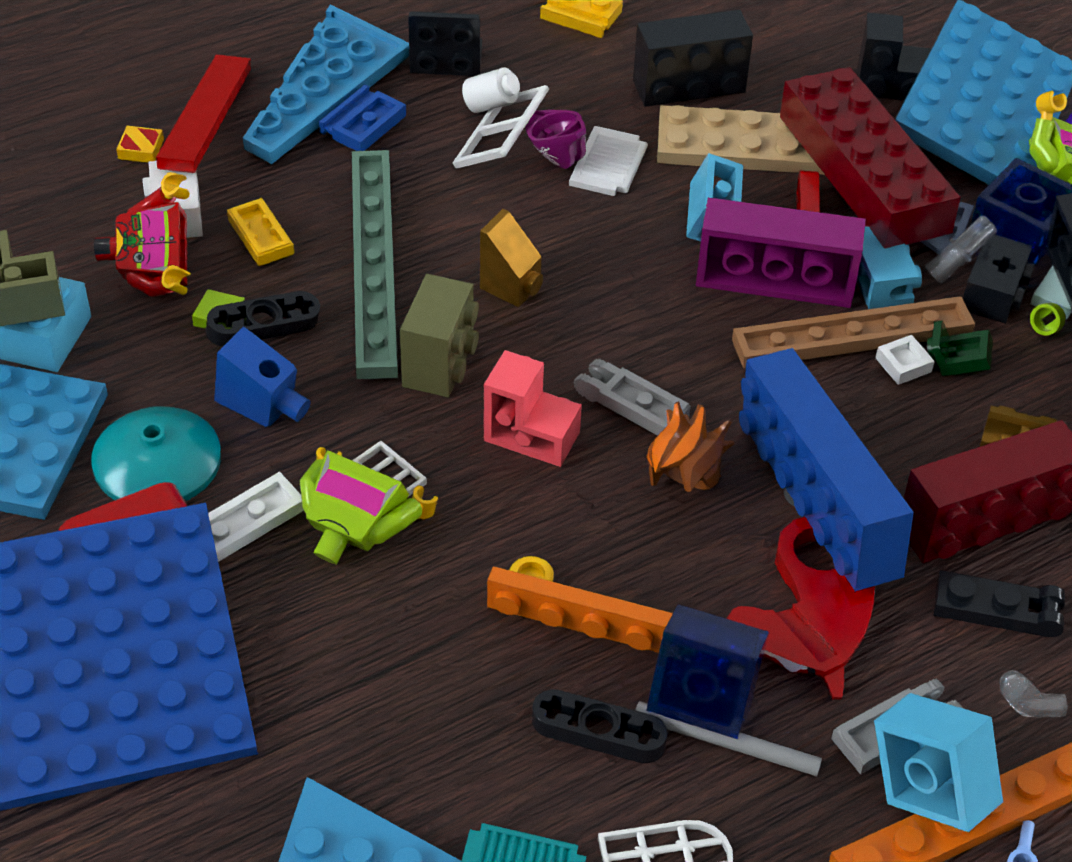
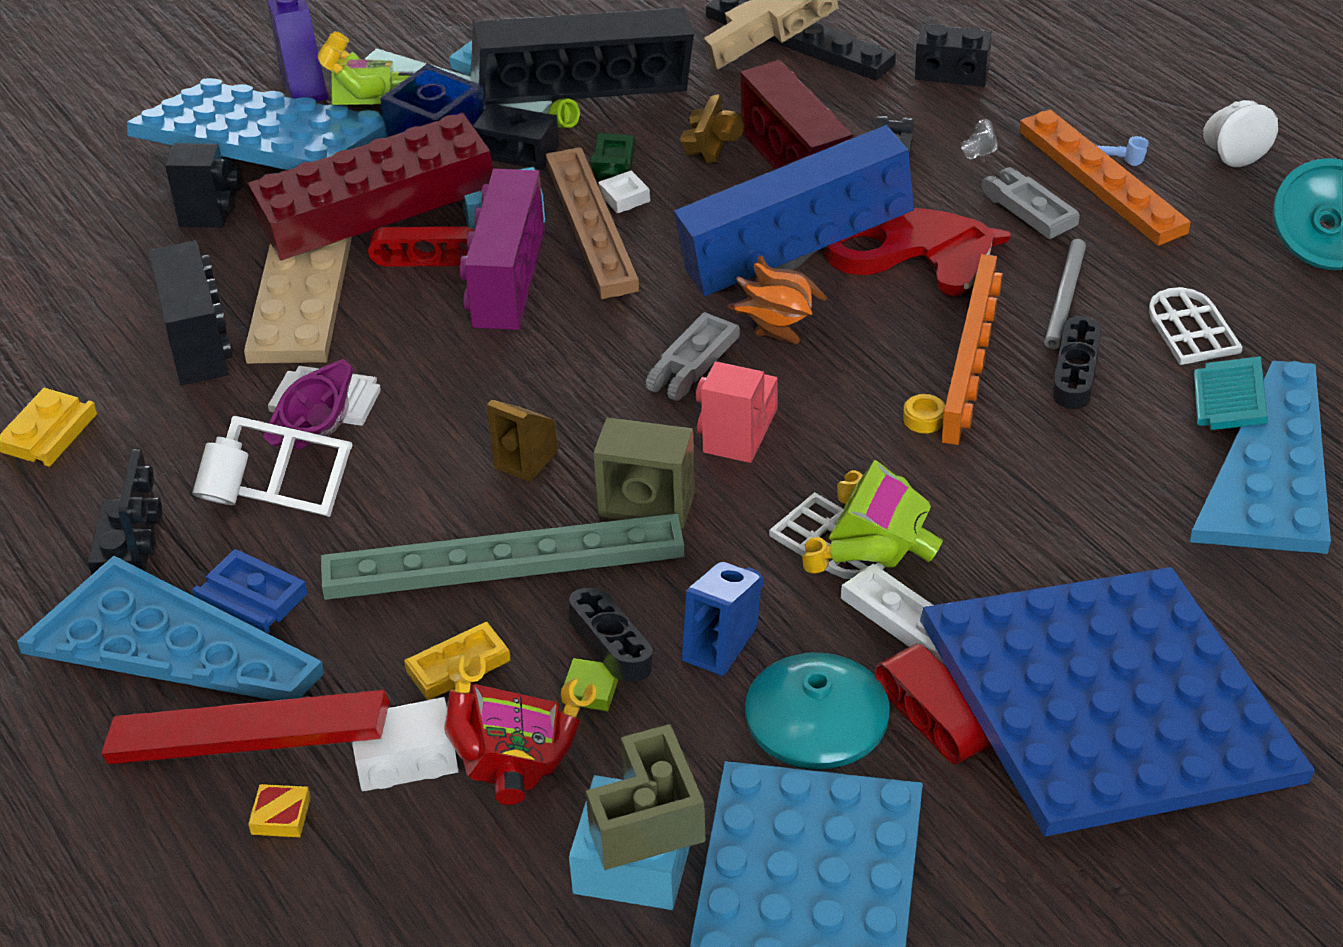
camera: 90 degrees left, 5 degrees down
(702, 187) = (420, 297): medium azure brick -> none
(707, 671) = (1029, 276): clear blue brick -> none
(939, 761) = (1089, 154): medium azure brick -> none
(961, 249) = (486, 128): clear axle -> none

